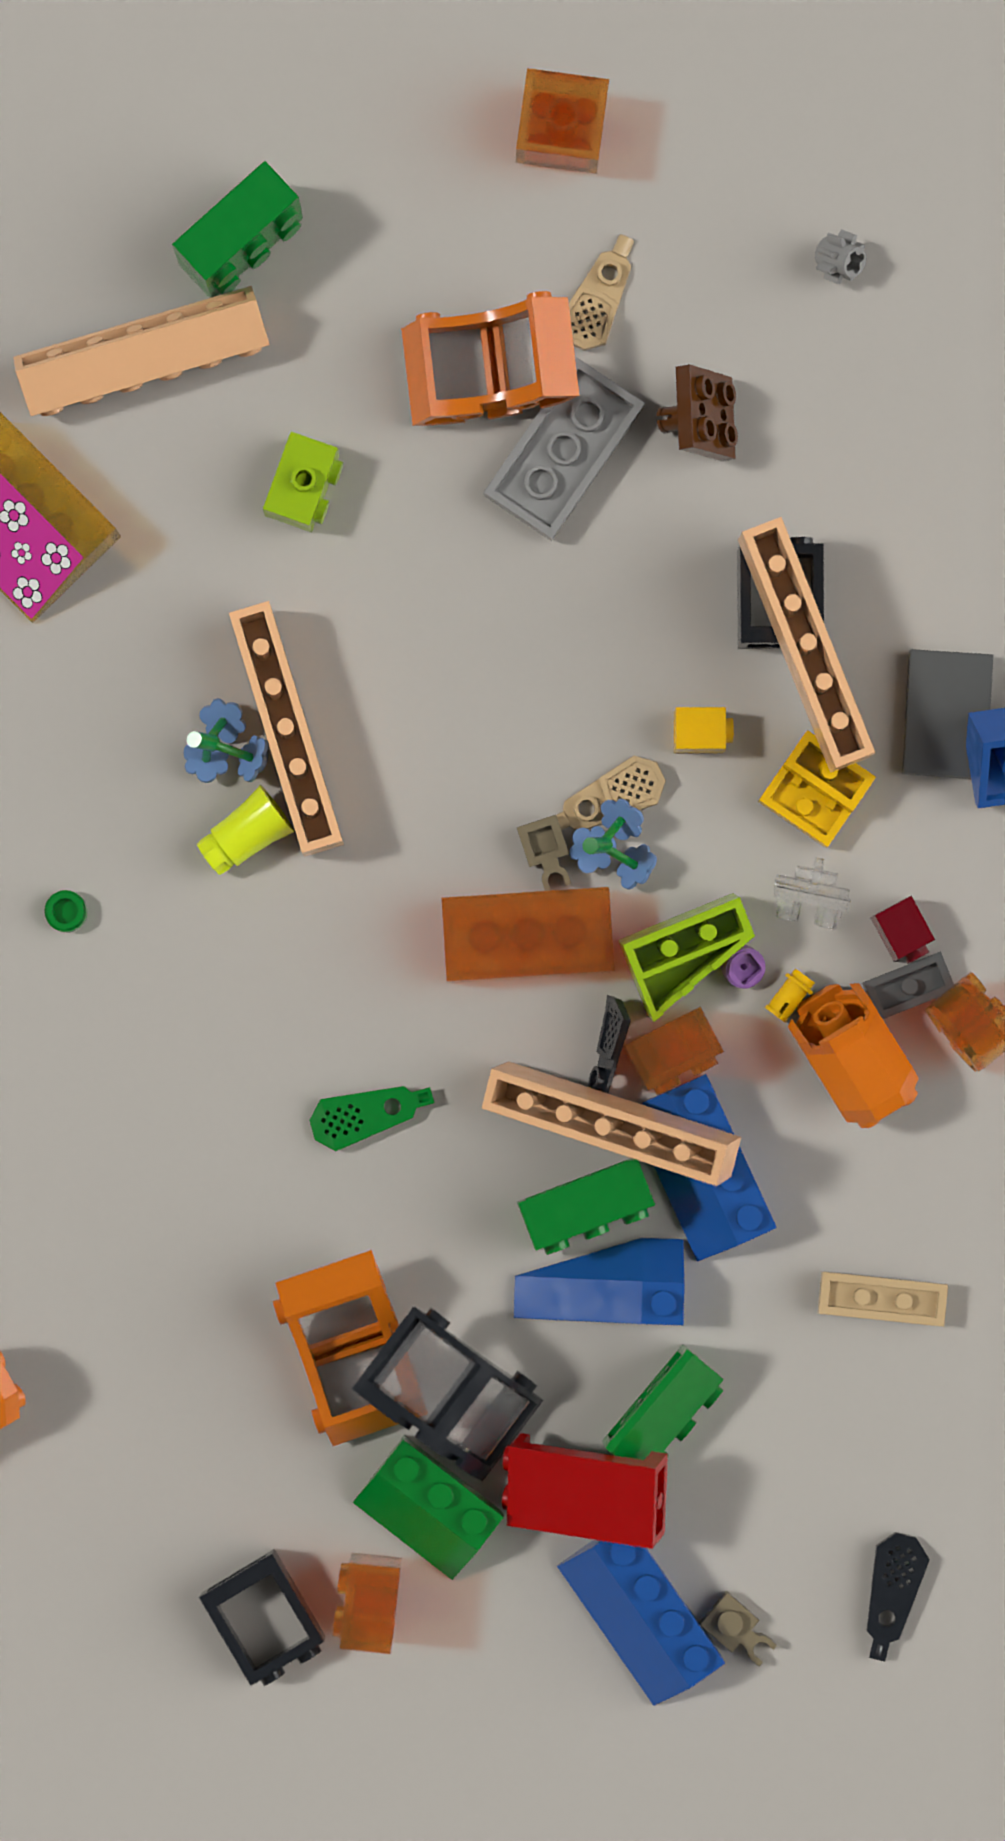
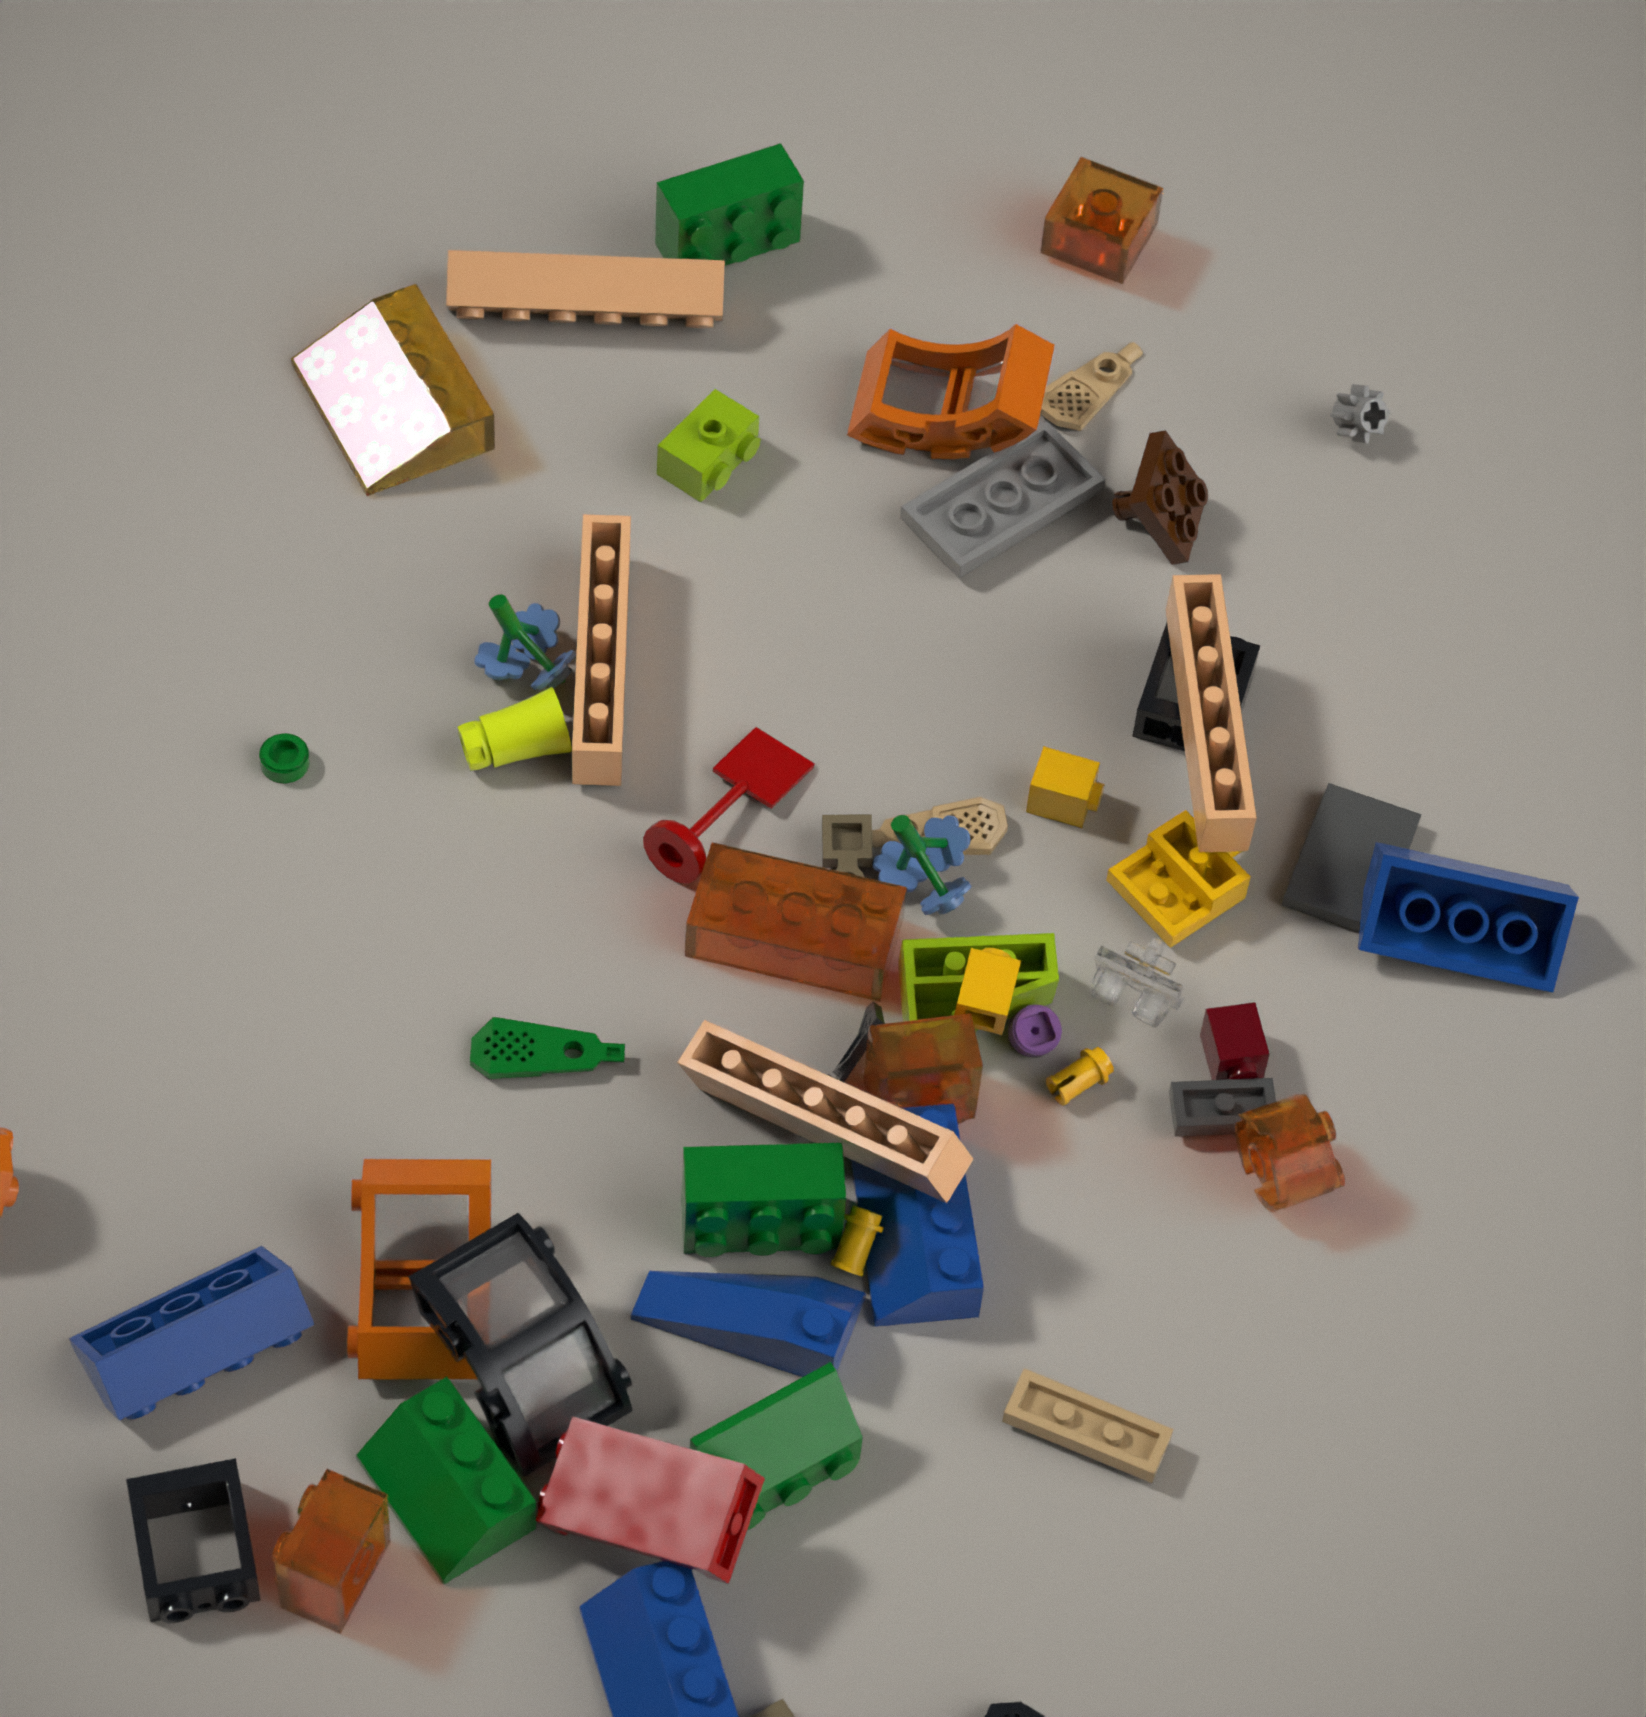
camera: 20 degrees right, 30 degrees down
(194, 1450) = (193, 1333): none -> blue slope
(452, 791) = (754, 767): none -> red piece
(666, 1194) = (857, 1240): none -> yellow pin
(705, 975) = (988, 988): none -> yellow brick
(854, 1054) = (1137, 1144): orange brick -> none

